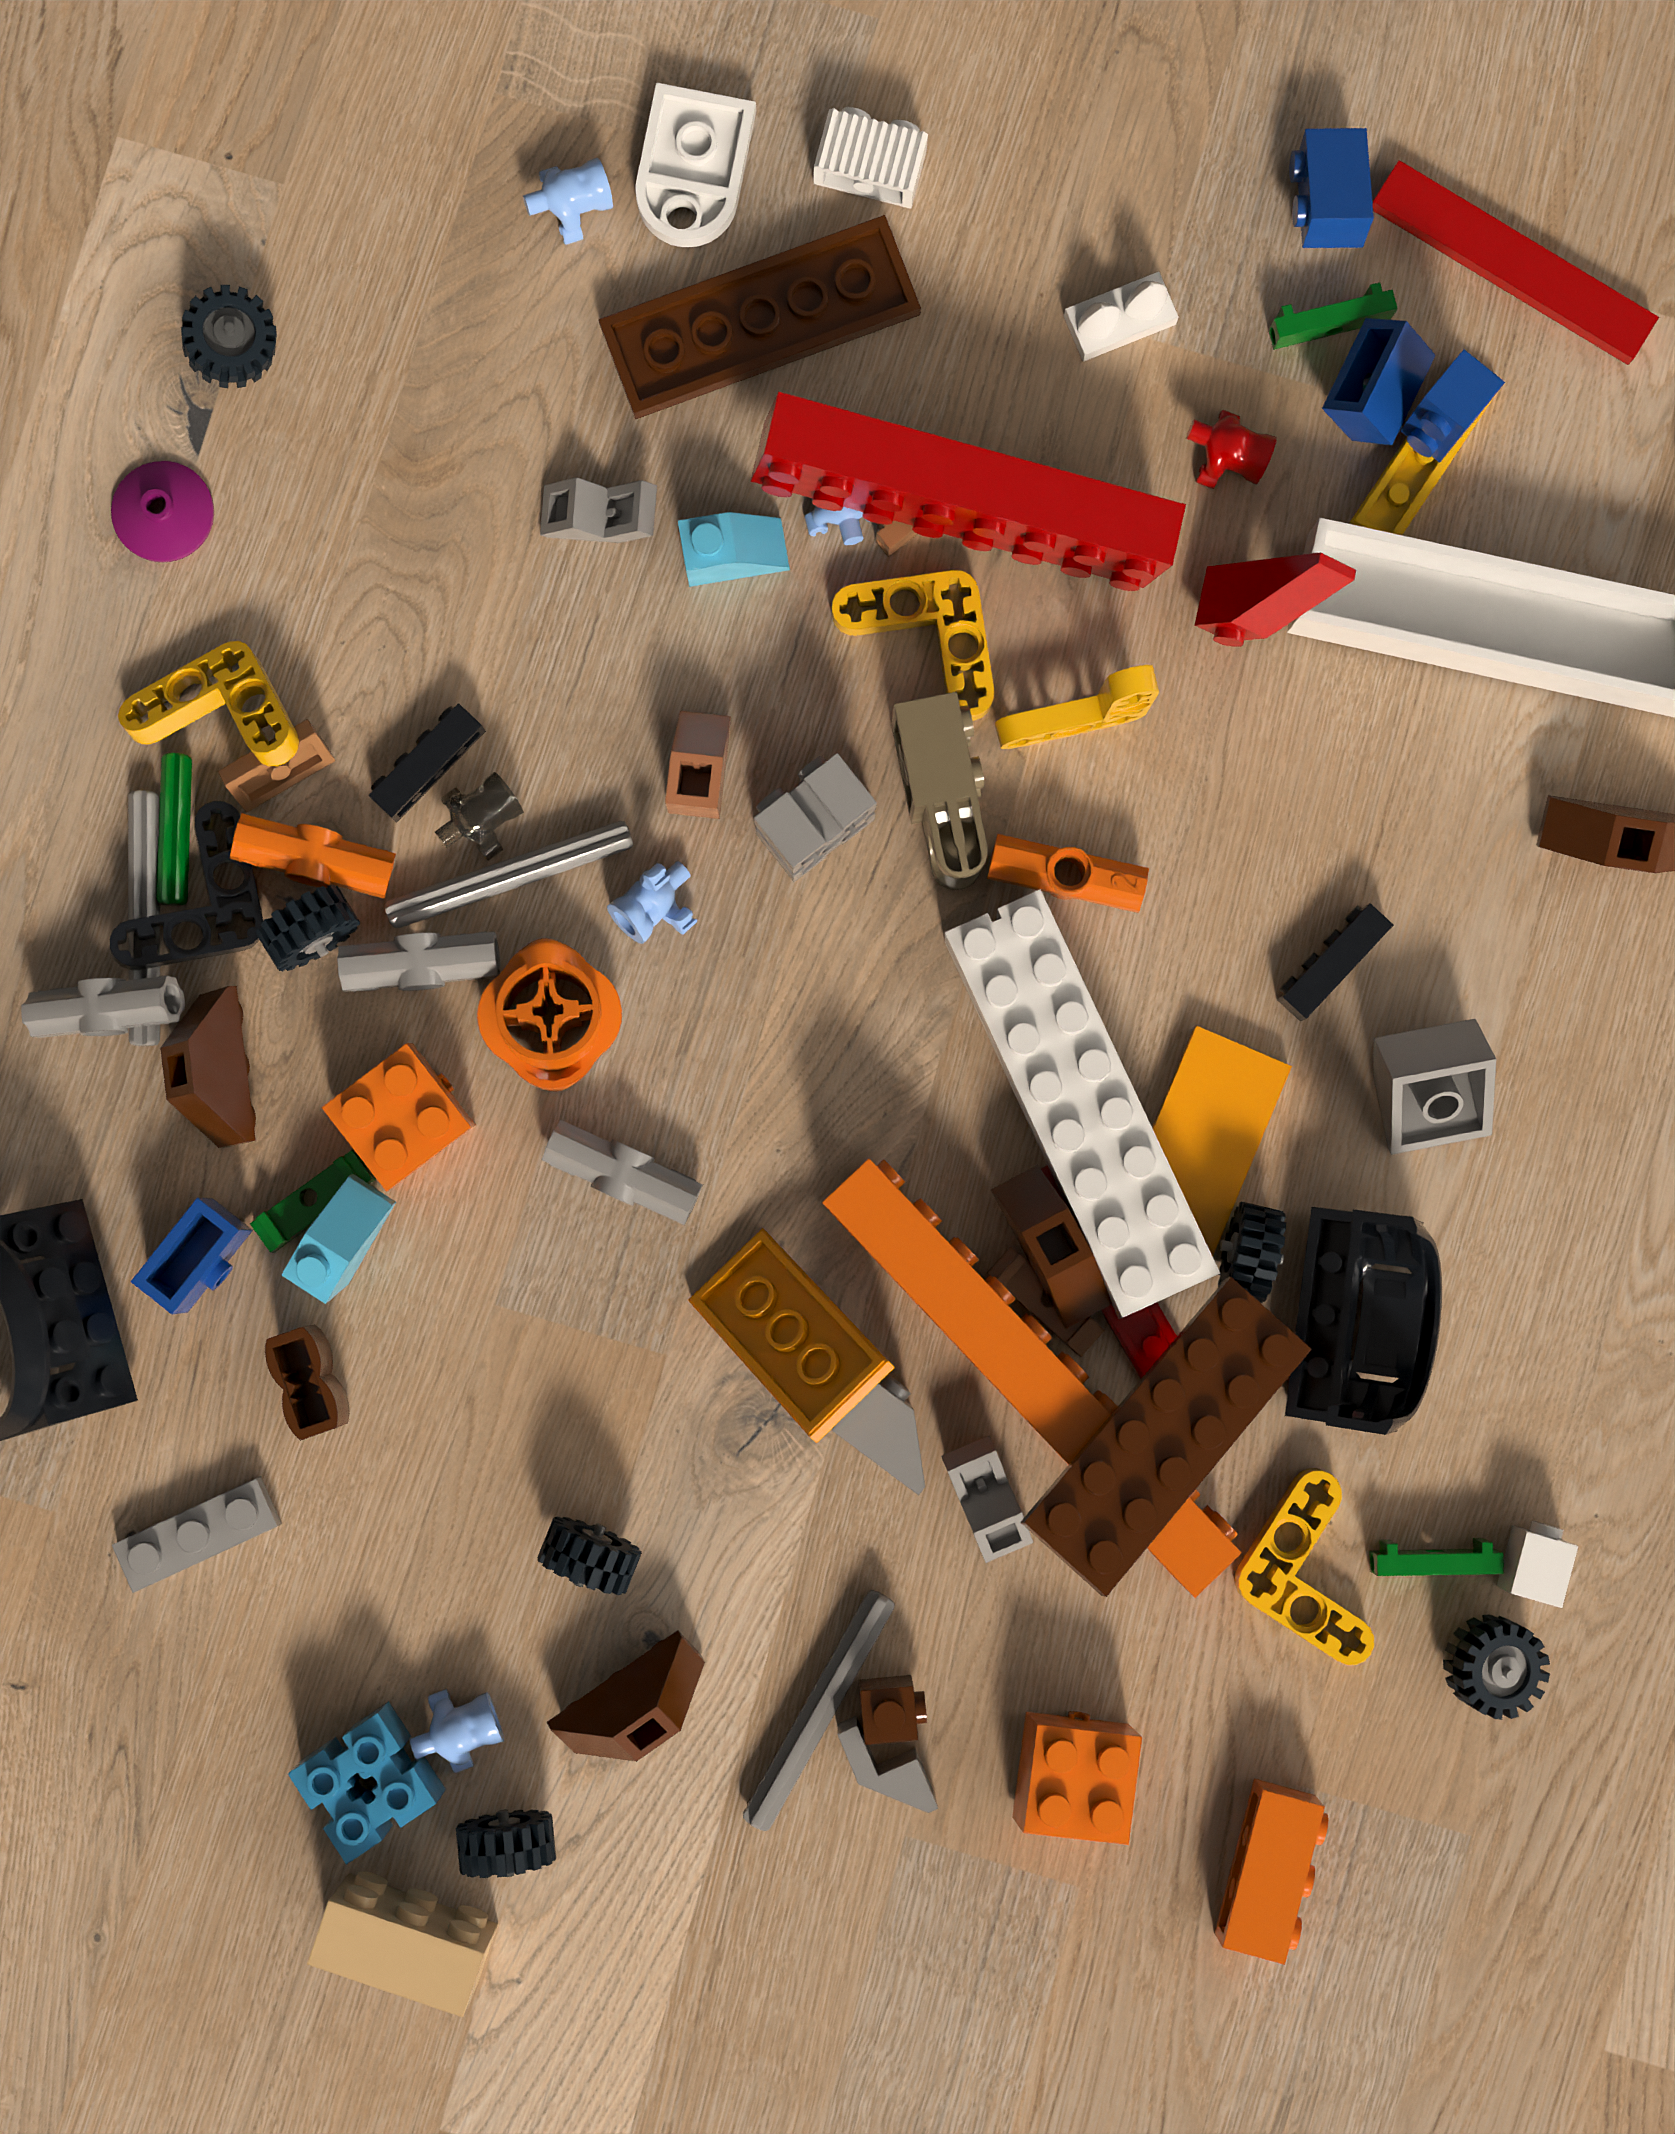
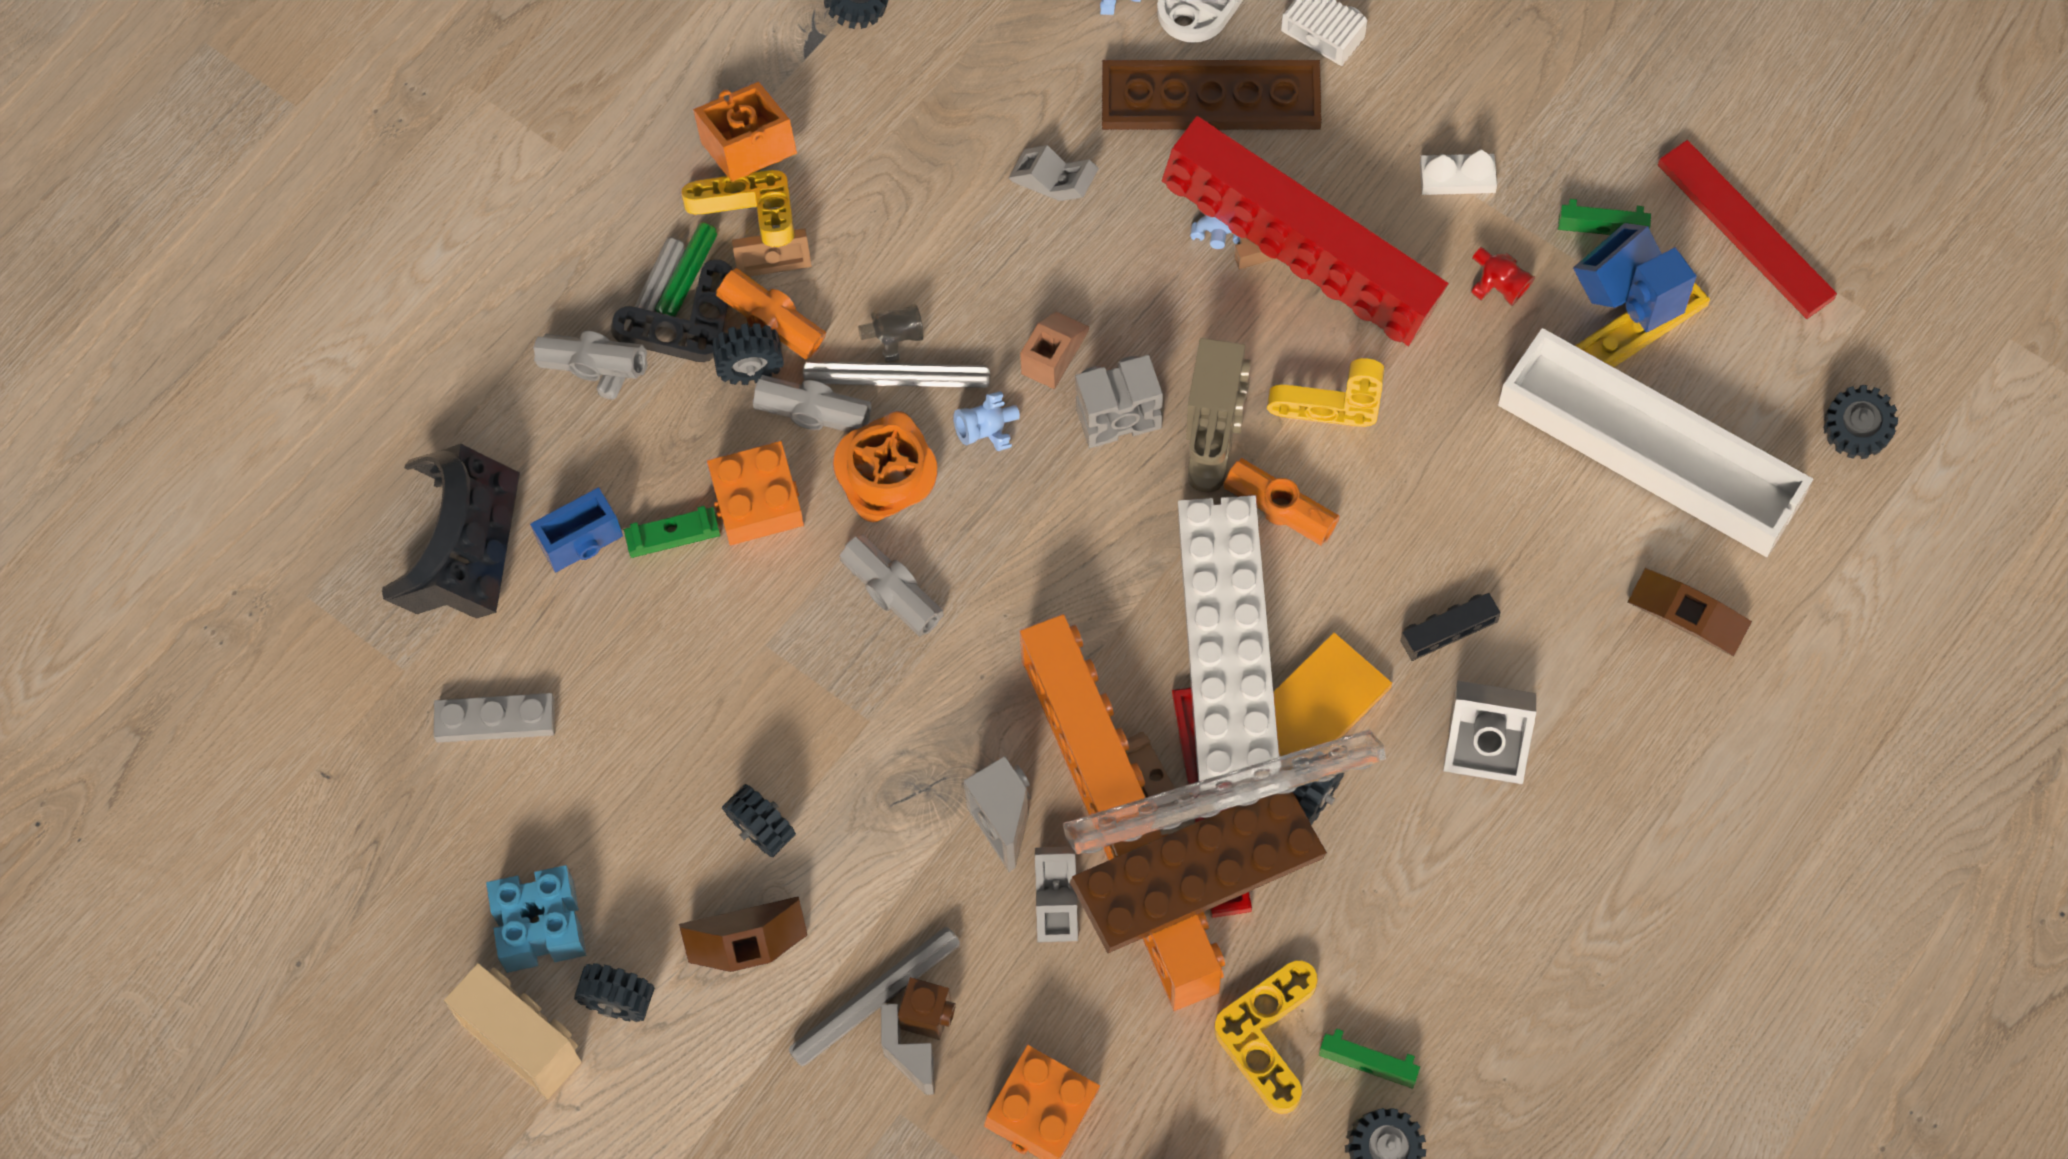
camera: 30 degrees right, 20 degrees down
(167, 605) = (745, 131): none -> orange brick
(175, 530) = (785, 80): magenta dish -> none
(209, 1069) = (641, 423): reddish brown slope -> none
(303, 1368) = (615, 640): reddish brown brick -> none
(339, 1239) = (679, 555): medium azure slope -> none
(427, 762) = (872, 287): black piece -> none
(458, 1729) = (614, 911): light blue piece -> none
(732, 547) = (1132, 223): medium azure slope -> none
(790, 1335) = (962, 720): light orange tile -> none
(932, 611) = (1255, 310): yellow beam -> none
(1053, 1245) = (1171, 734): reddish brown slope -> none
(1163, 1329) = (1223, 791): none -> clear plate
(1266, 594) = (1486, 363): red slope -> none
(1332, 188) = (1632, 139): blue brick -> none
(1395, 1326) = (1407, 874): black piece -> none
(1538, 1564) = (1444, 1087): white brick -> none

